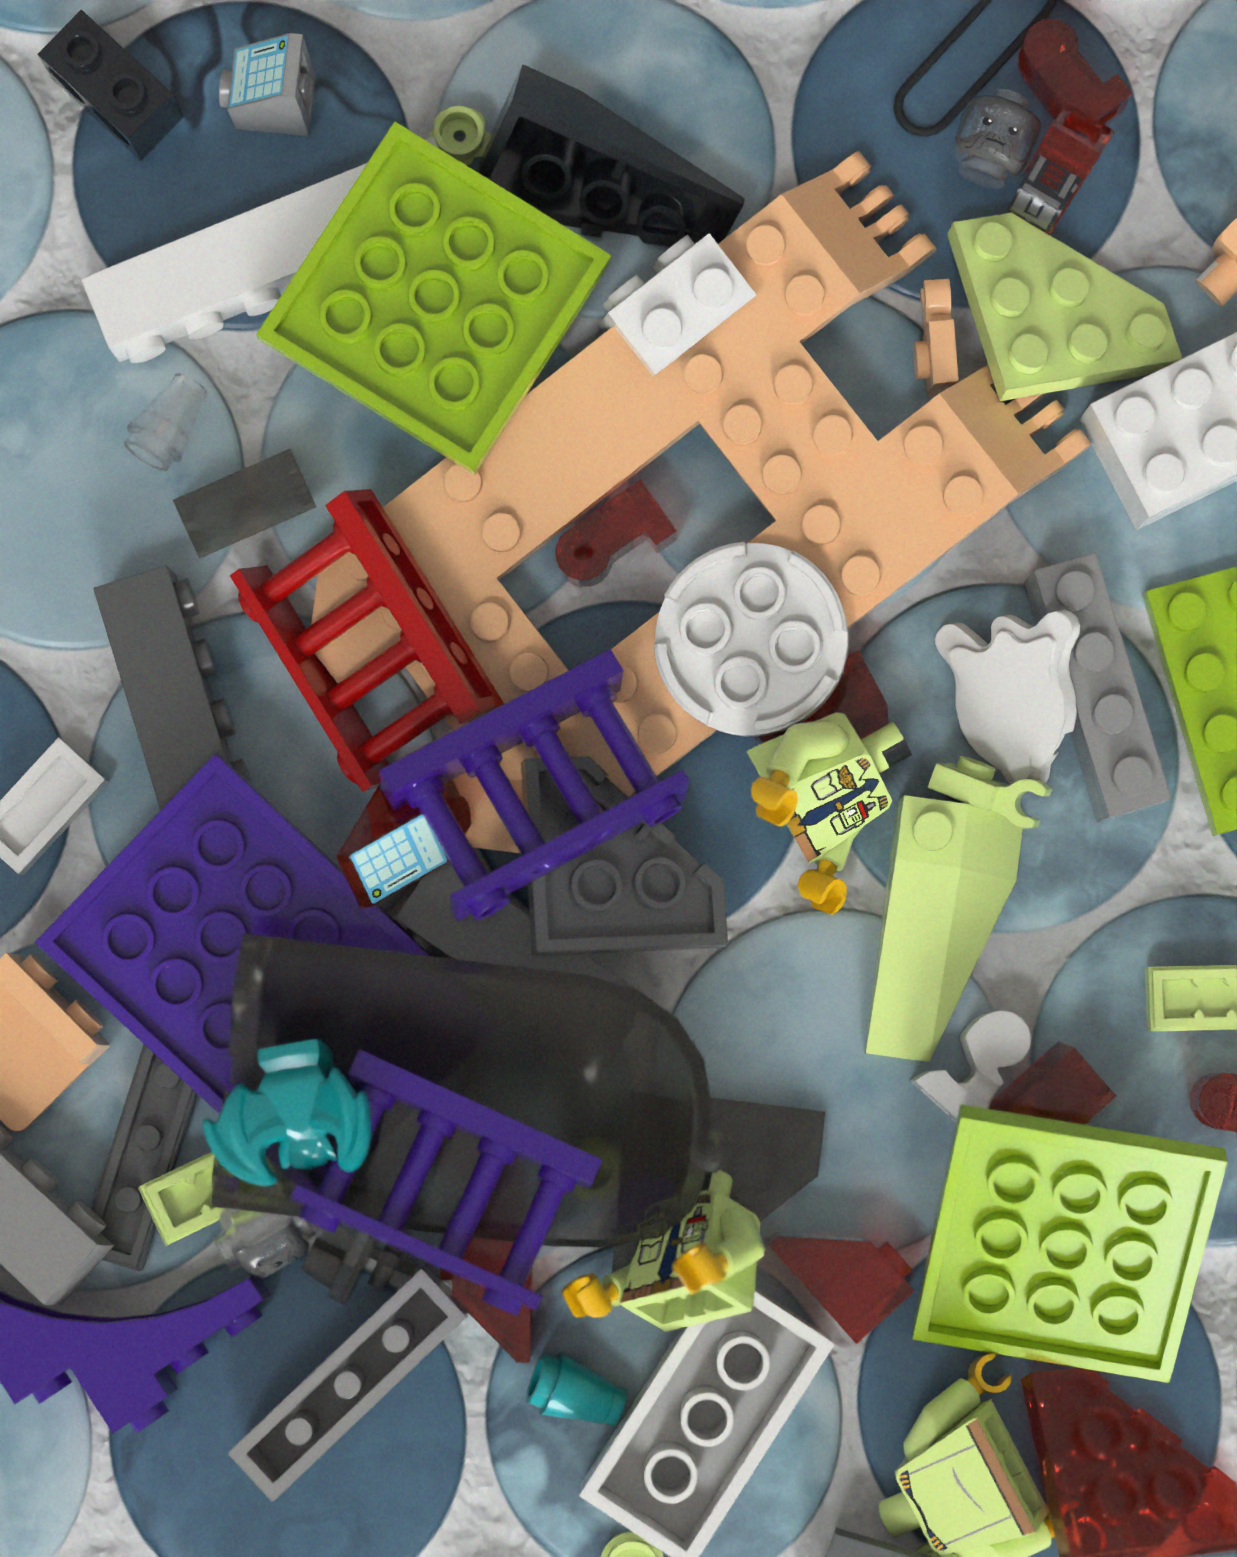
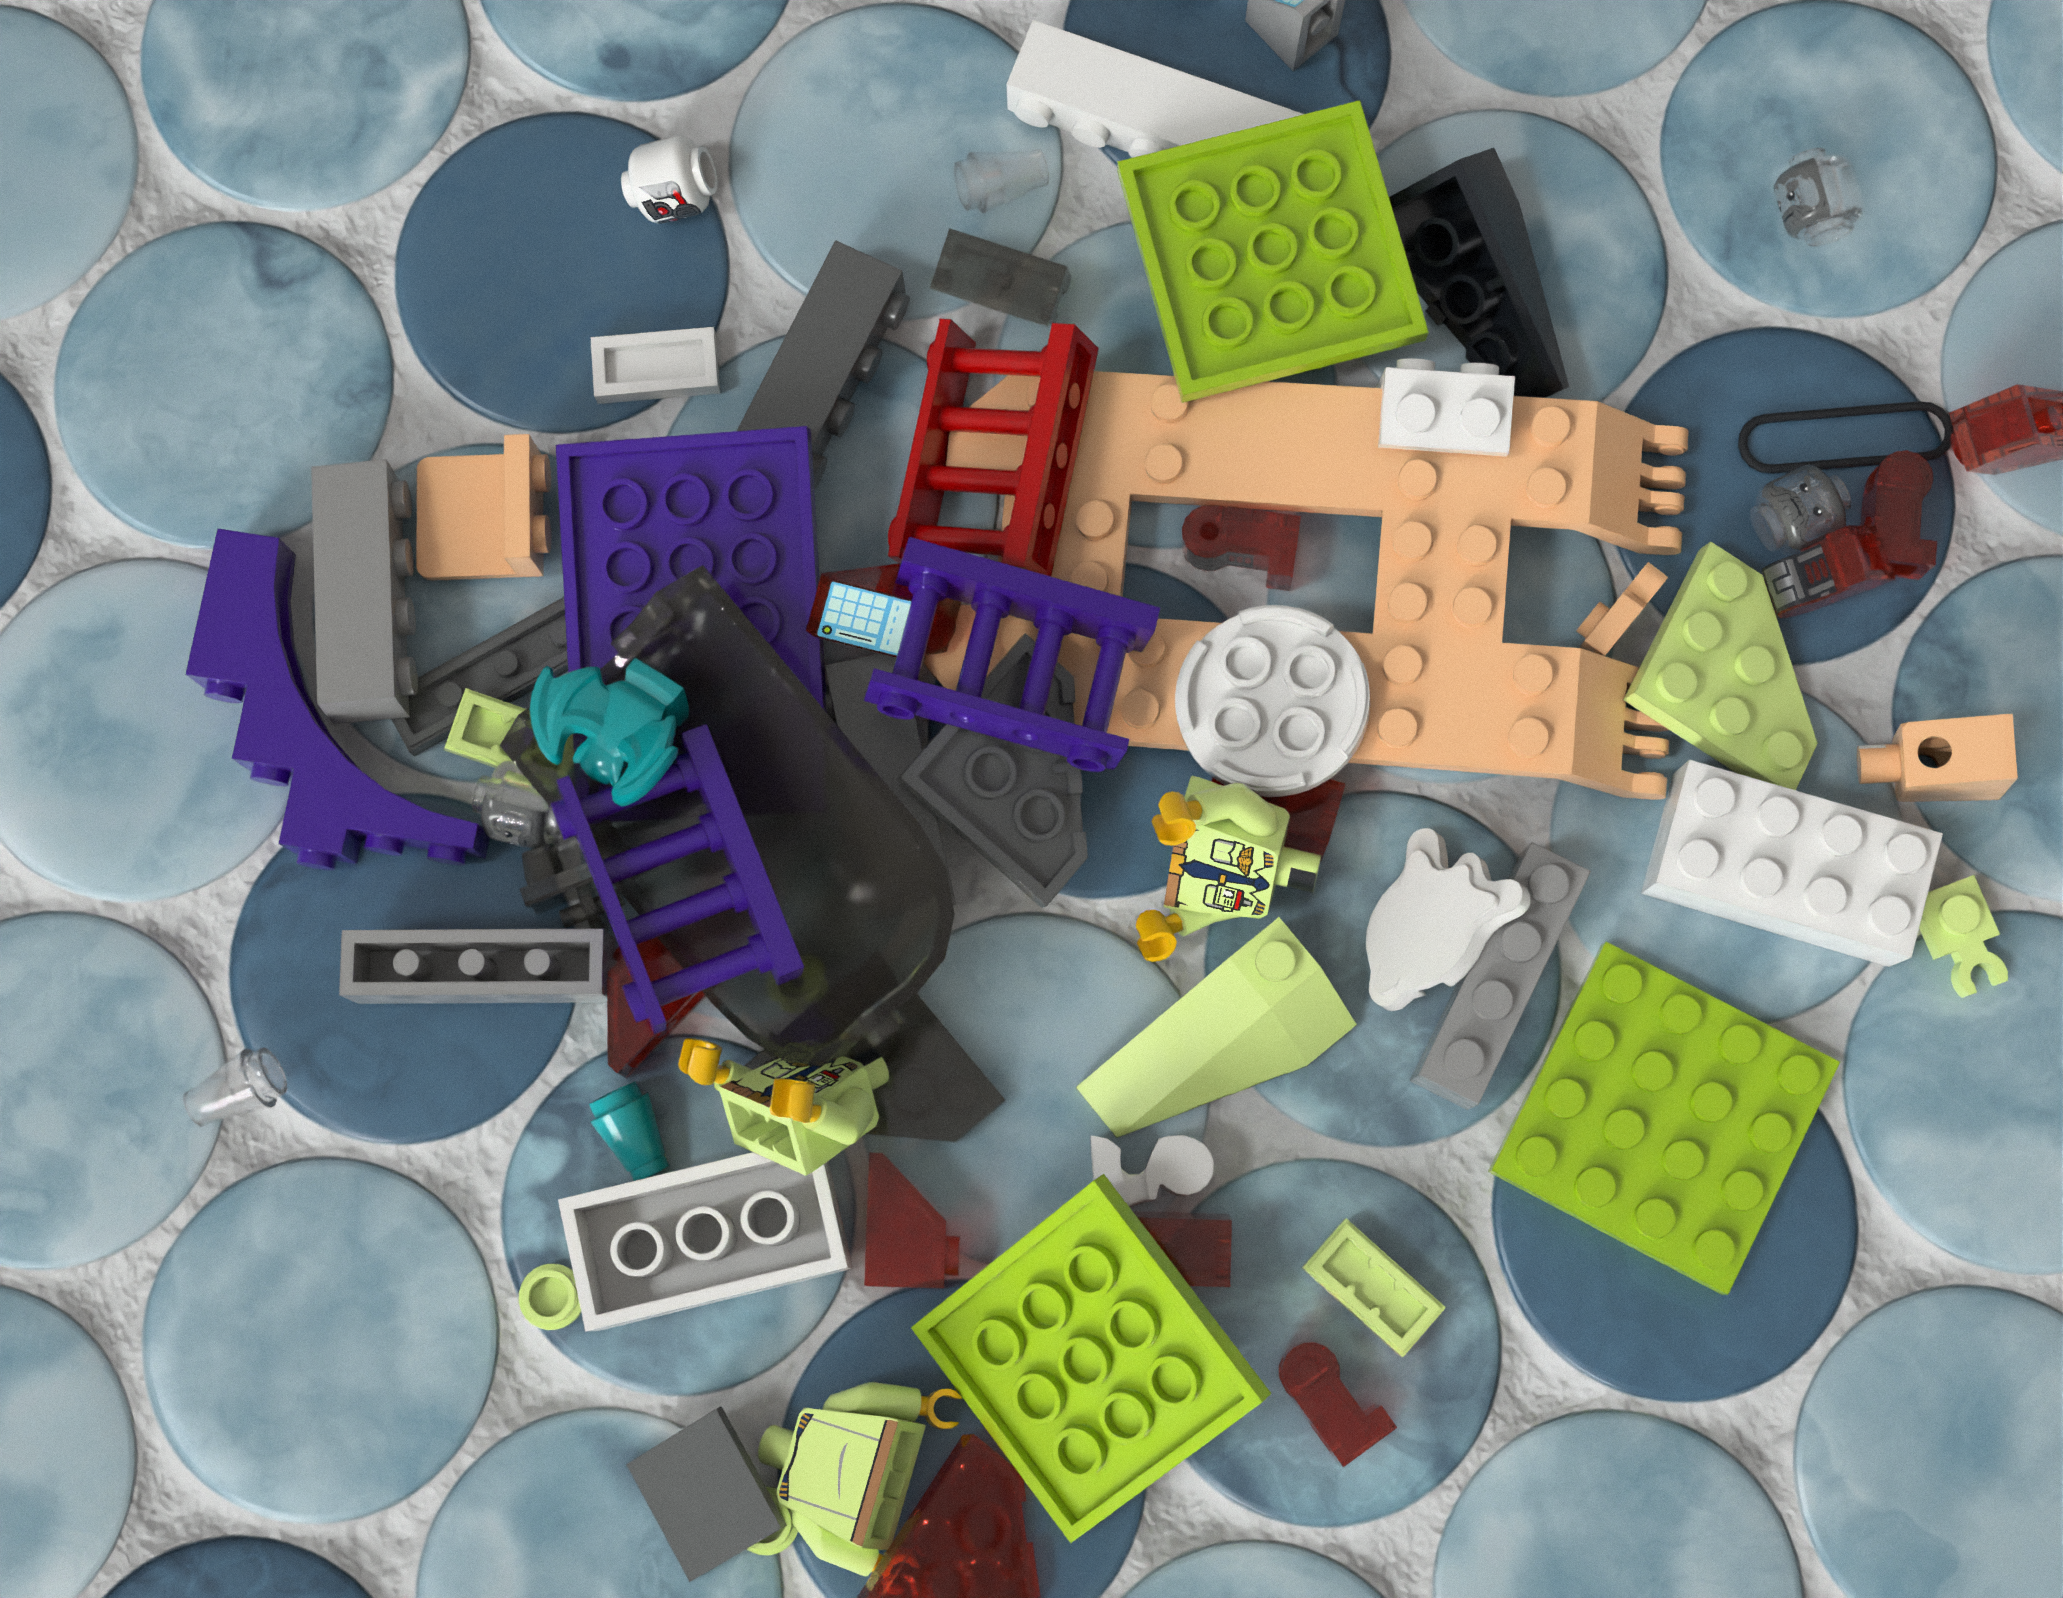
camera: 45 degrees right, 5 degrees down
(463, 120) = (1407, 148): yellowish green plate -> none
(974, 784) = (1341, 961): yellowish green plate -> none

